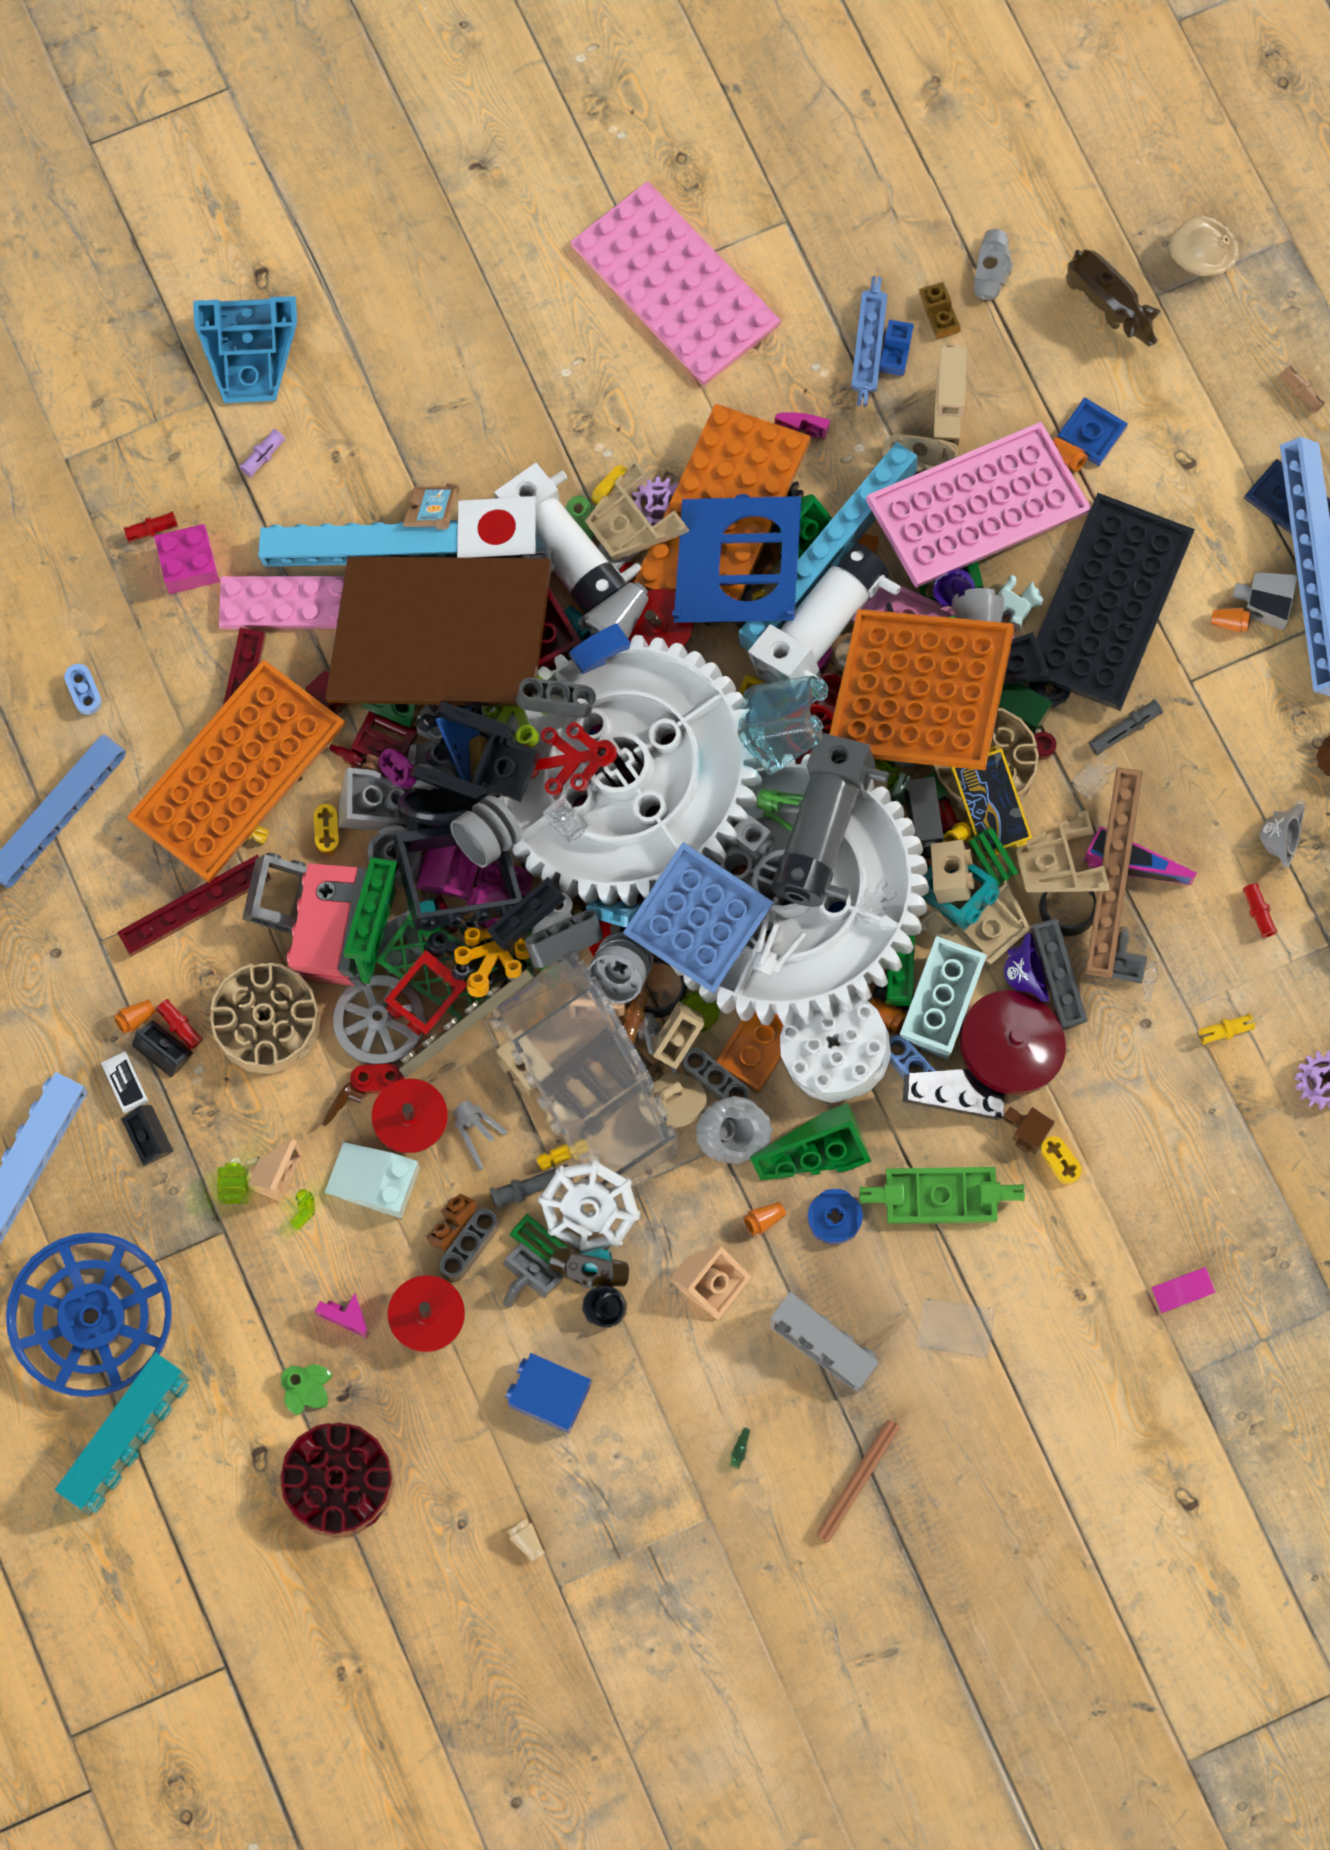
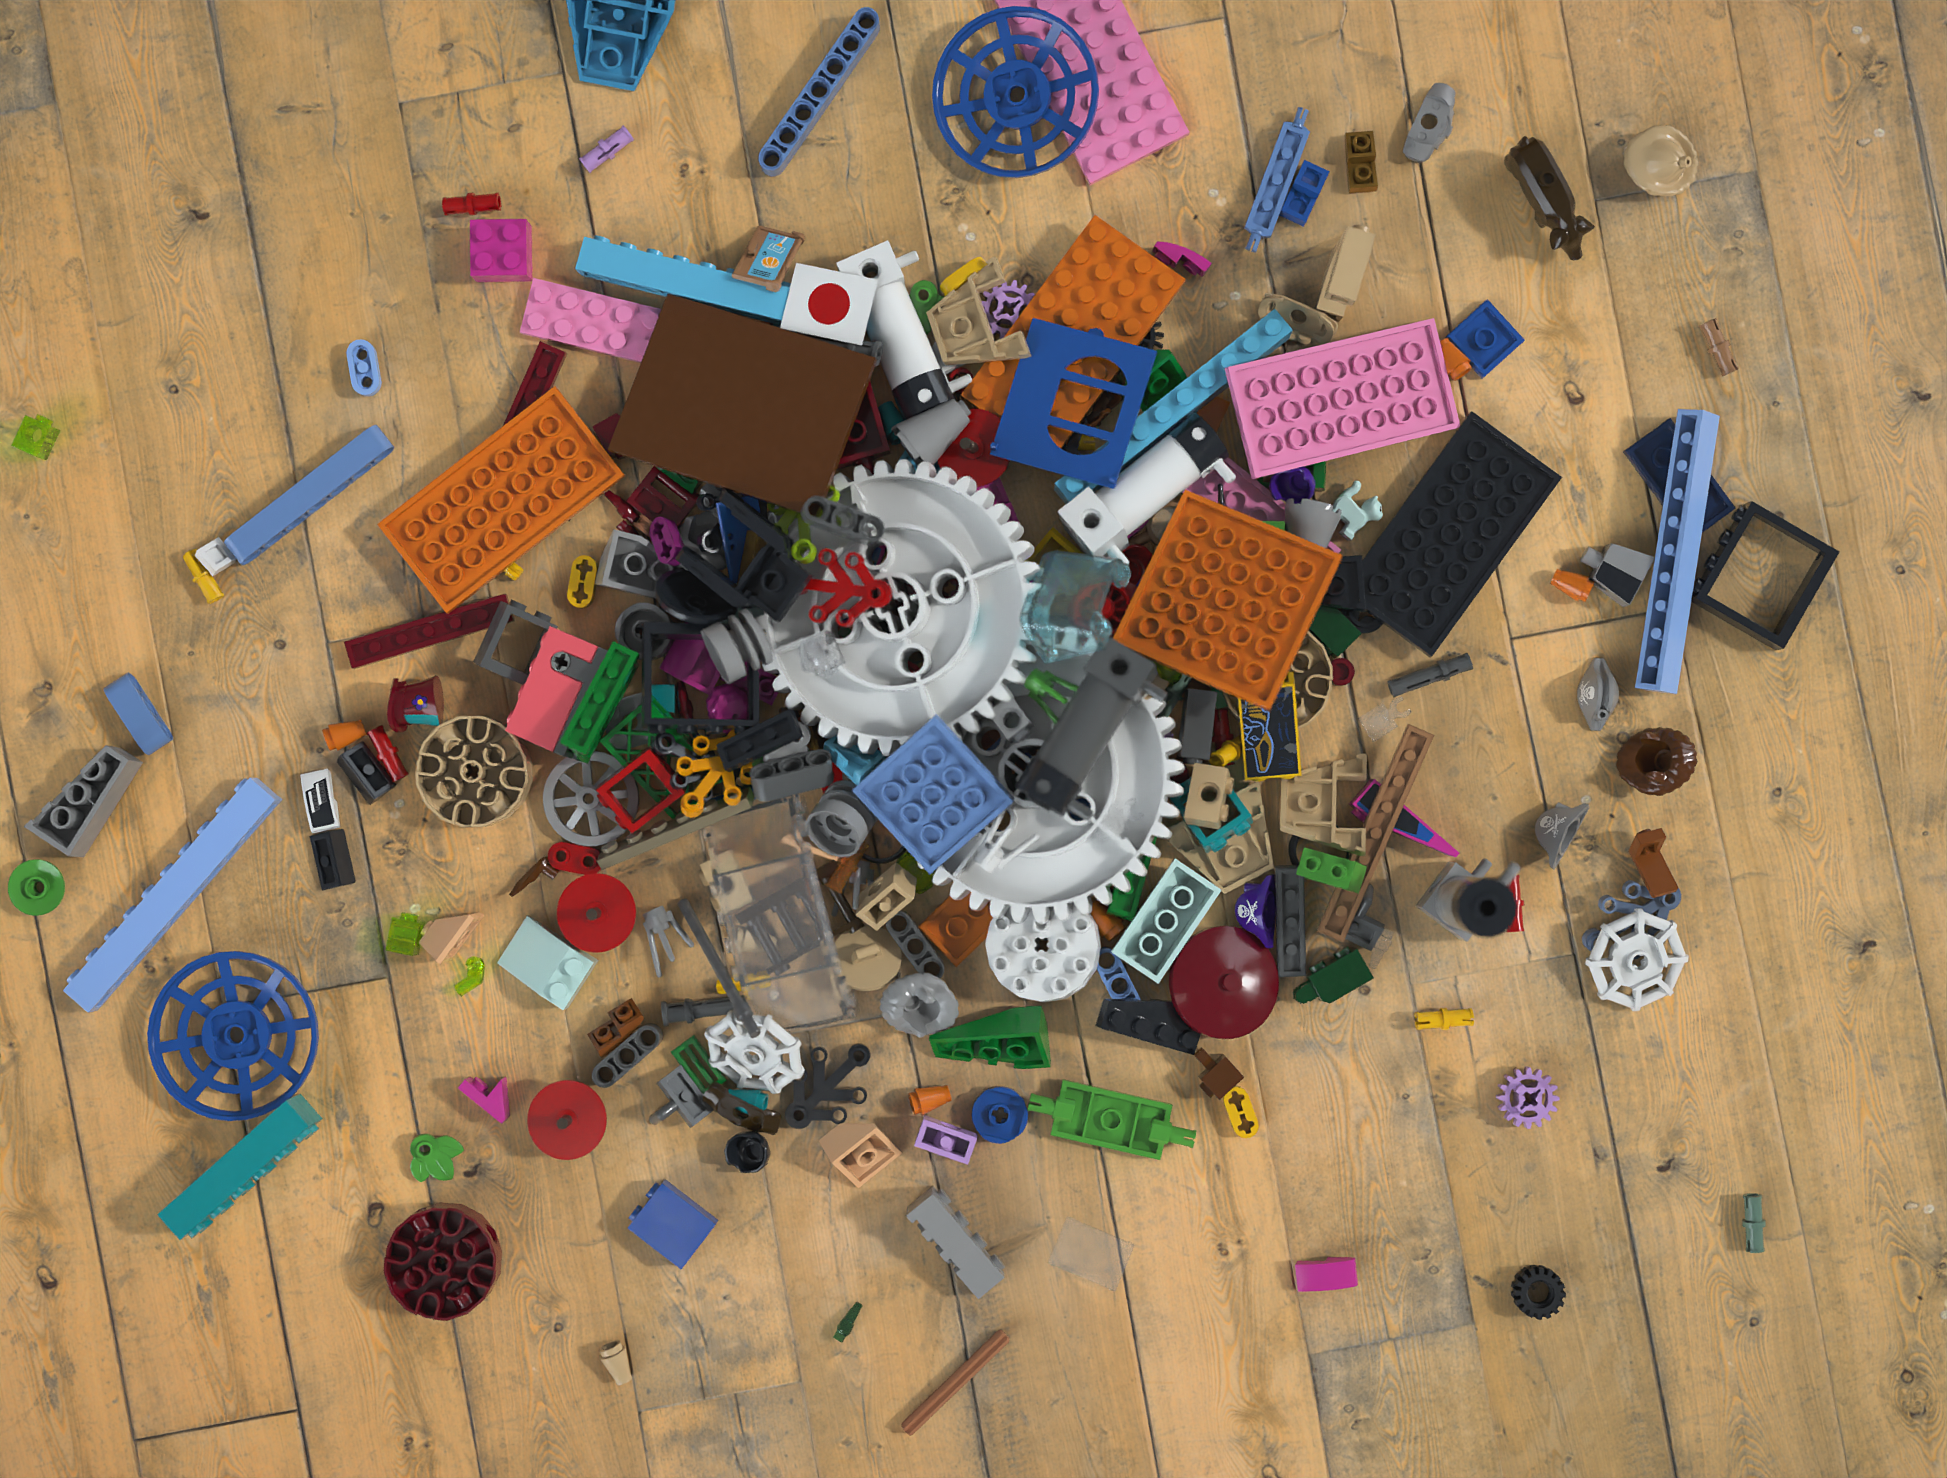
camera: 10 degrees right, 15 degrees up
(196, 968) = (415, 703): none -> dark red hat
(438, 372) = (820, 78): none -> medium blue beam
(568, 1159) = (741, 1009): none -> flat silver bar
(597, 648) = (901, 474): blue slope -> none
(610, 308) = (1003, 80): none -> blue dish
(663, 1233) = (825, 1090): none -> black plant
(790, 1248) = (946, 1139): none -> lavender brick
(1000, 849) = (1261, 806): green tile -> none
(1082, 910) = (1331, 870): none -> bright green brick
(1114, 1015) = (1334, 978): none -> dark green hinge
(1216, 899) = (1469, 903): none -> piece
(1283, 710) = (1597, 694): none -> light grey hat

